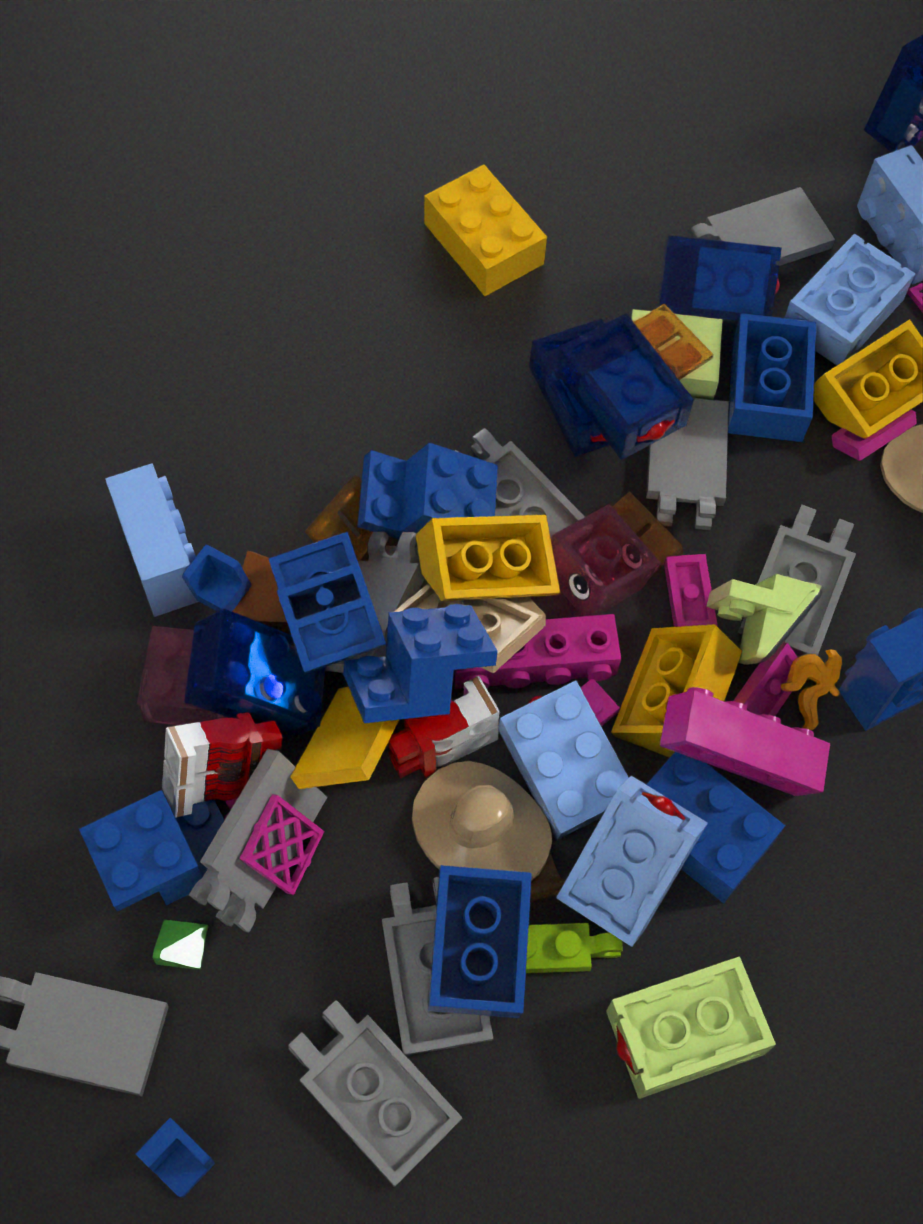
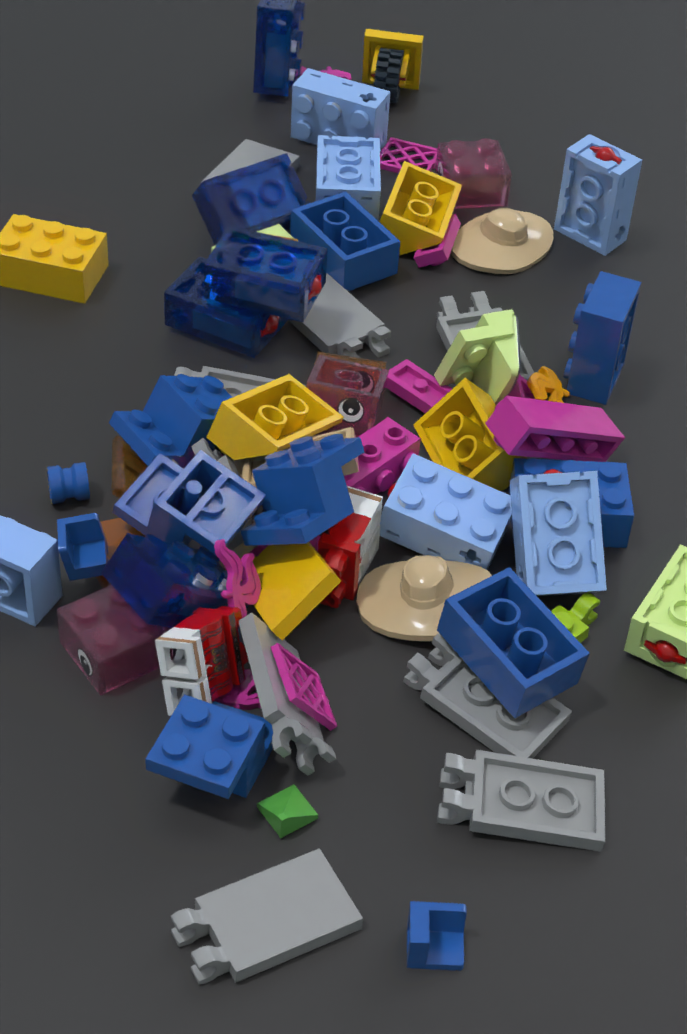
camera: 40 degrees left, 20 degrees down
(290, 492) = (68, 482): none -> blue wheel
(296, 715) = (249, 590): none -> dark pink piece

